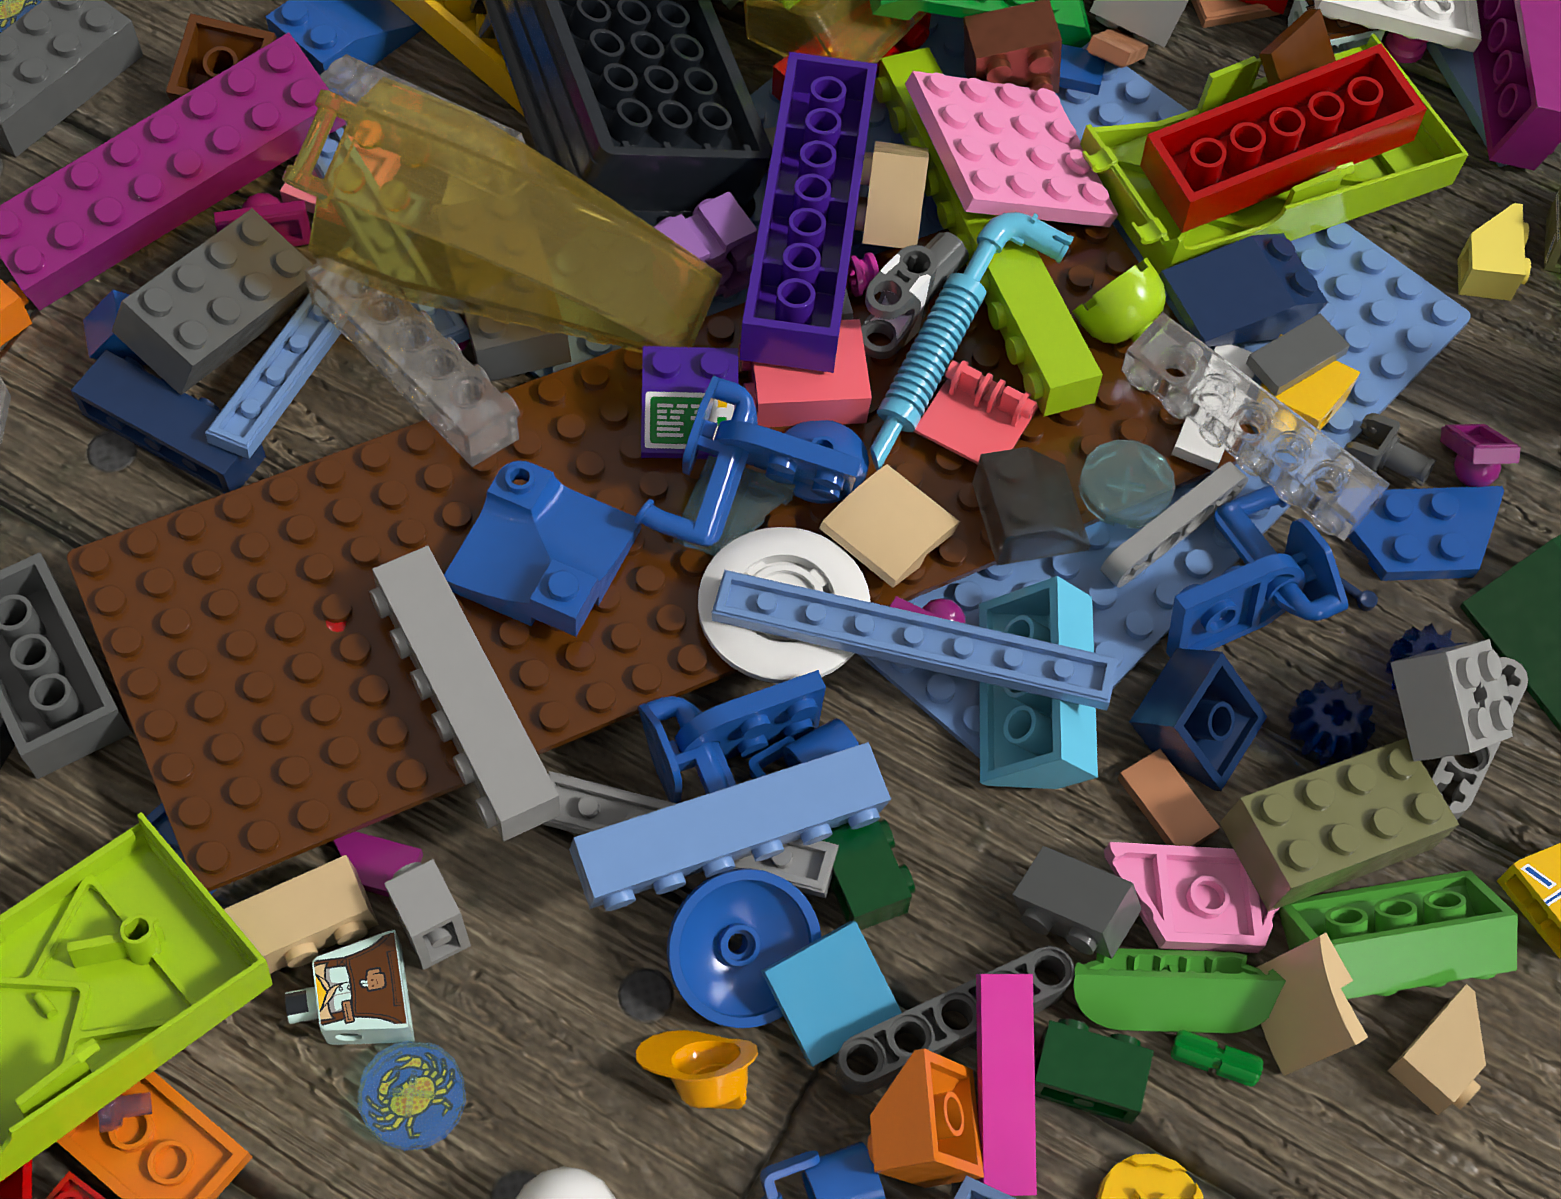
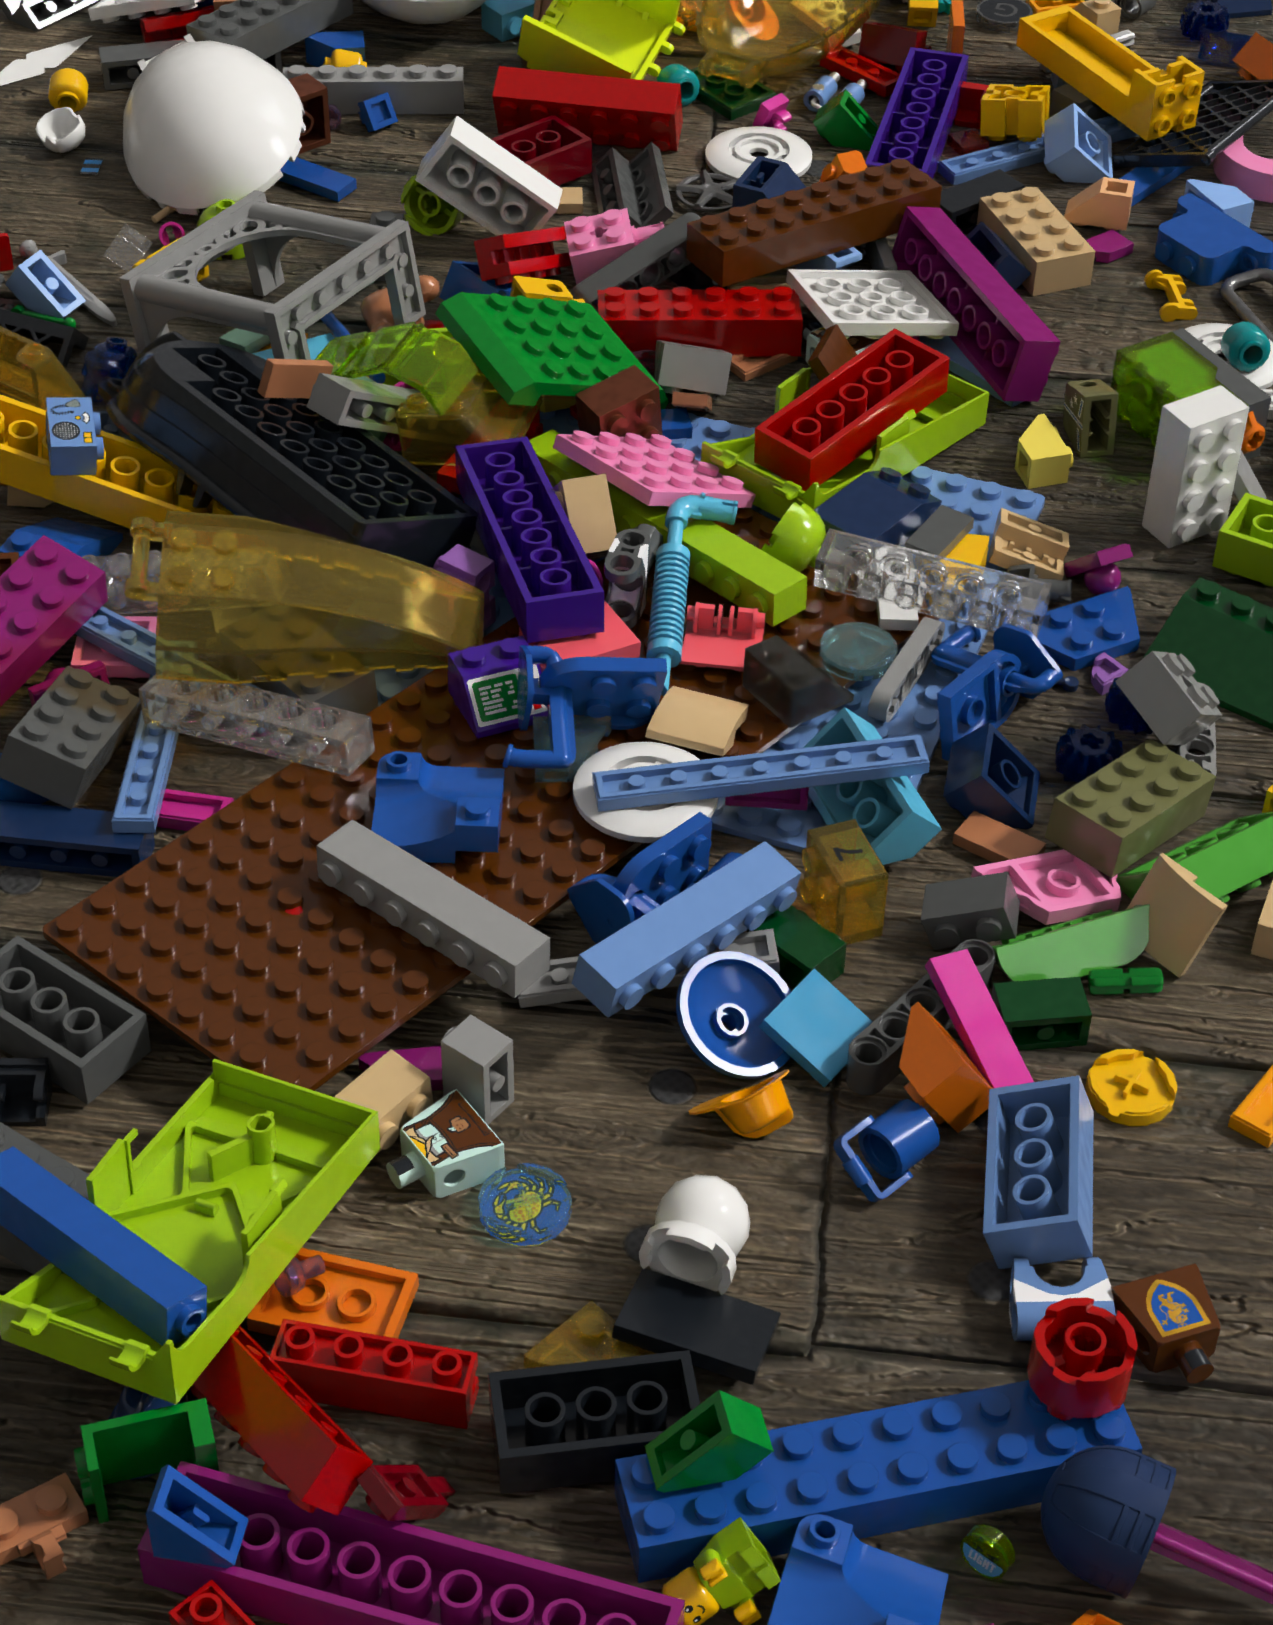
camera: 20 degrees left, 20 degrees down
(319, 426) = (187, 809): none -> dark pink tile
(948, 809) = (844, 881): none -> clear yellow brick
(1412, 388) = (1027, 541): none -> tan slope
(1418, 602) = (1104, 672): none -> medium lavender tile

